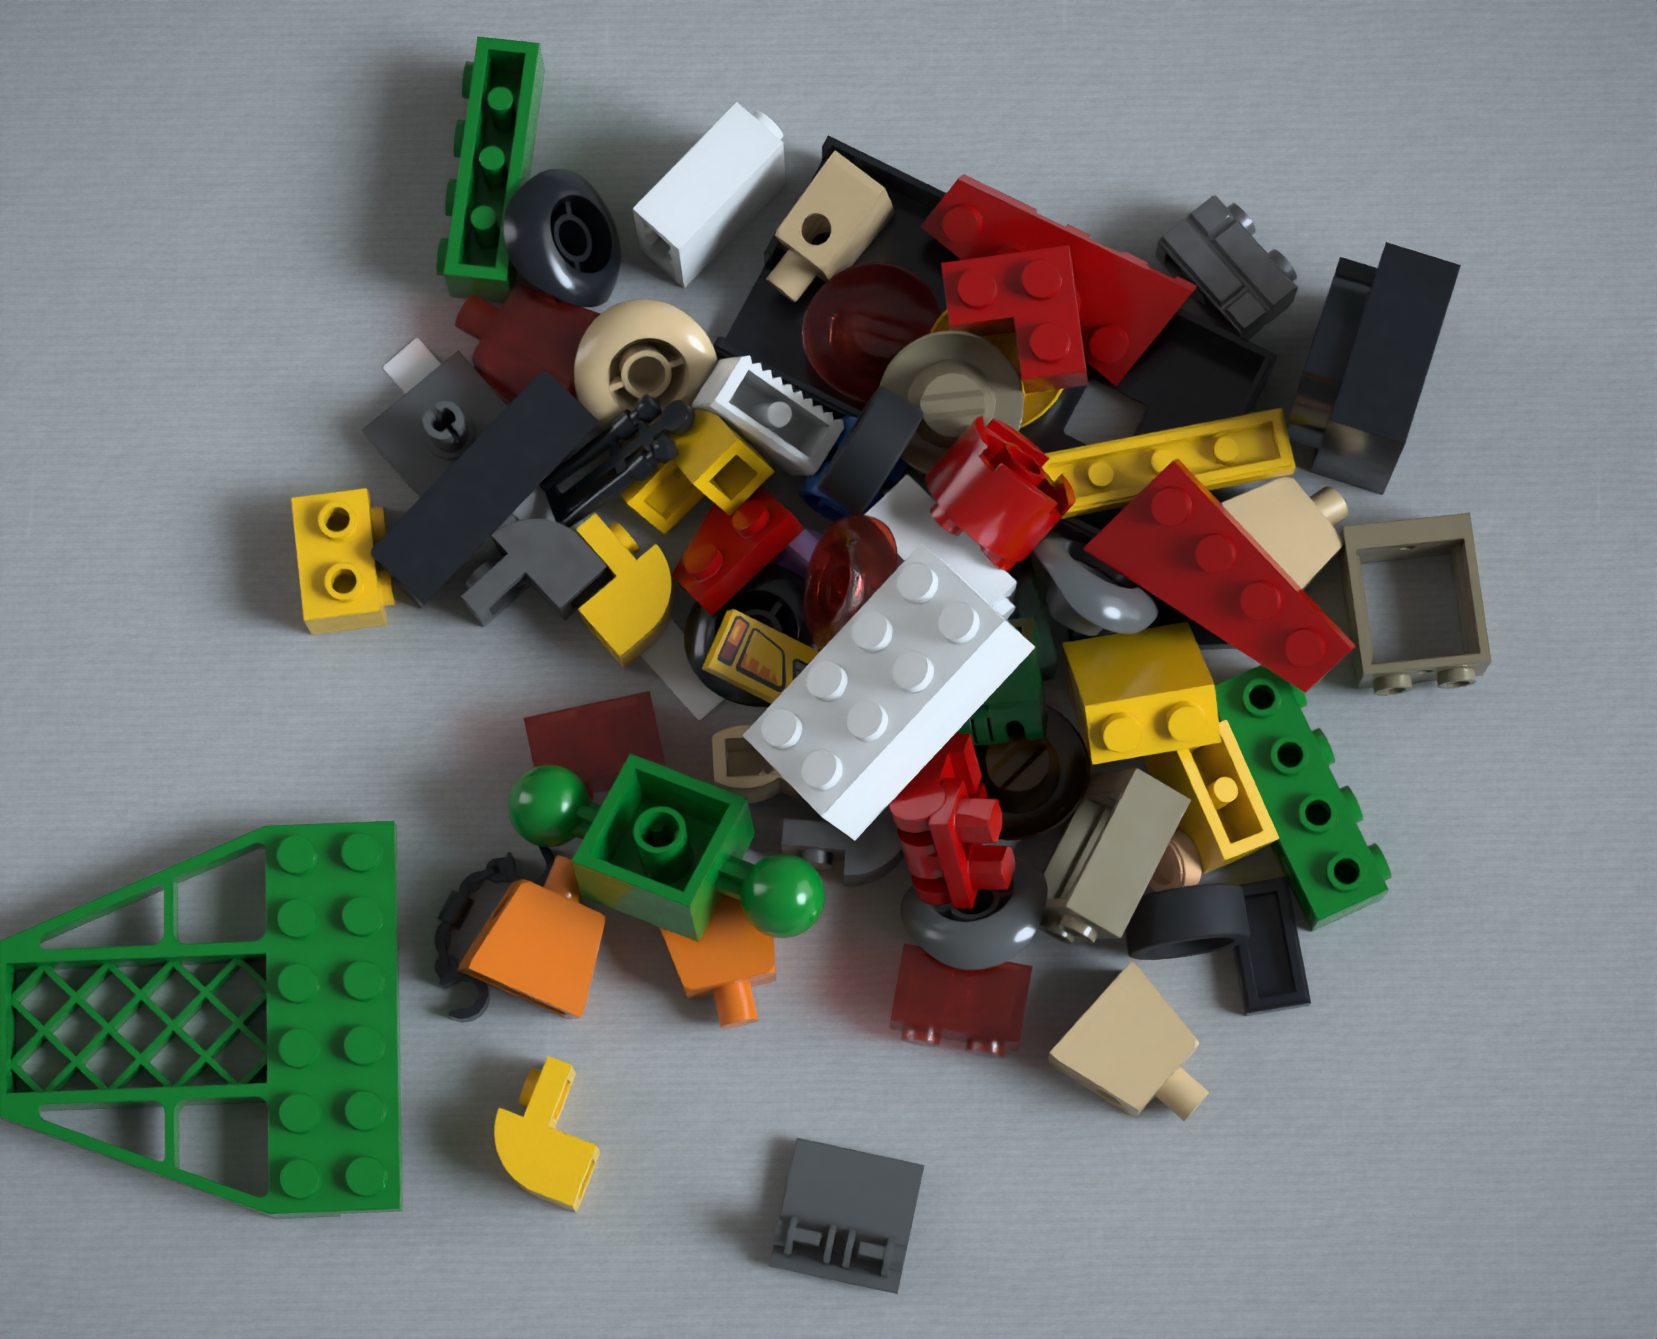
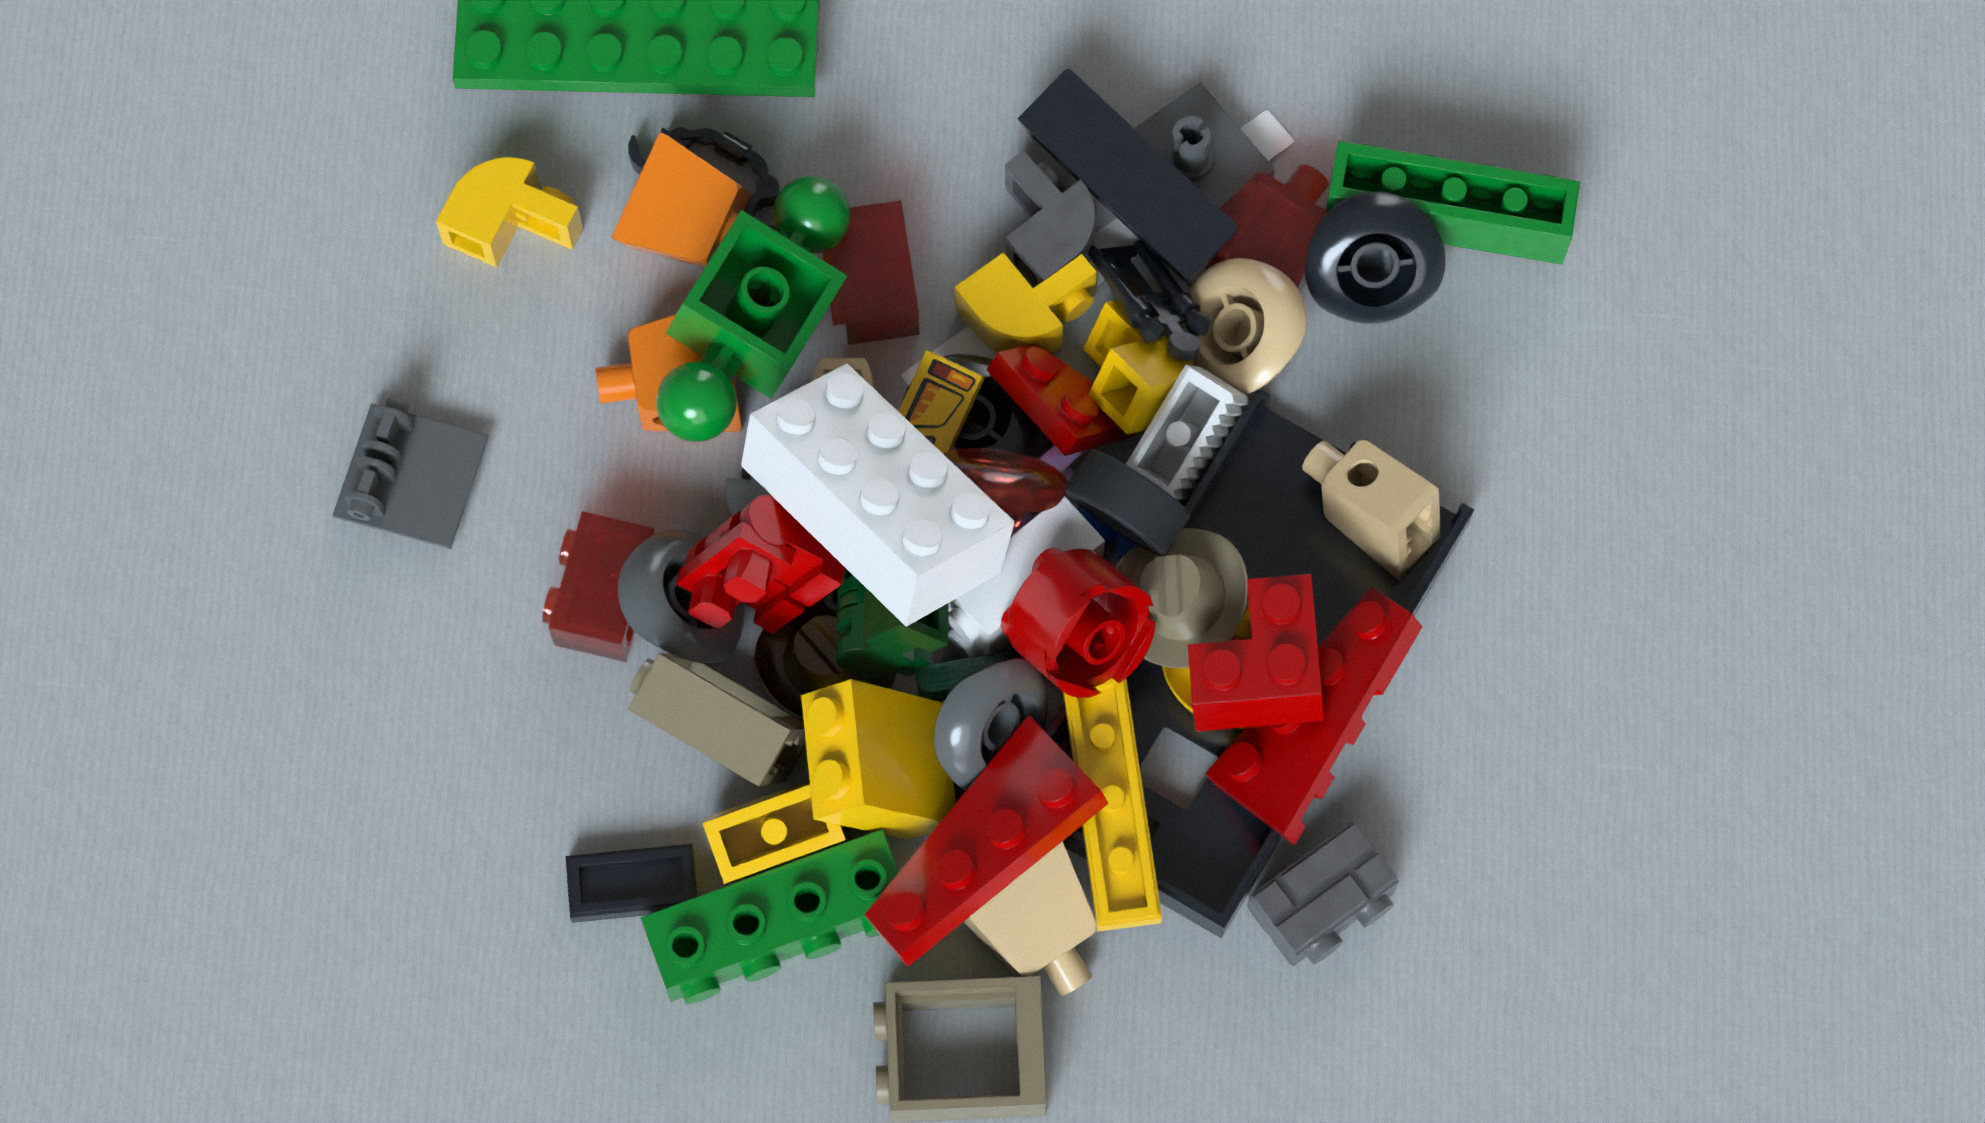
camera: 90 degrees right, 5 degrees down
(336, 572) = (1087, 41): yellow brick -> none
(711, 193) = (1415, 395): white brick -> none
(863, 323) = (1274, 527): clear red hat -> none
(1132, 1049) = (539, 741): tan torso -> none
(1179, 864) = (717, 792): light nougat tile -> none
(1187, 922) = (652, 792): black tyre -> none
(1370, 364) = (1199, 1006): black container -> none

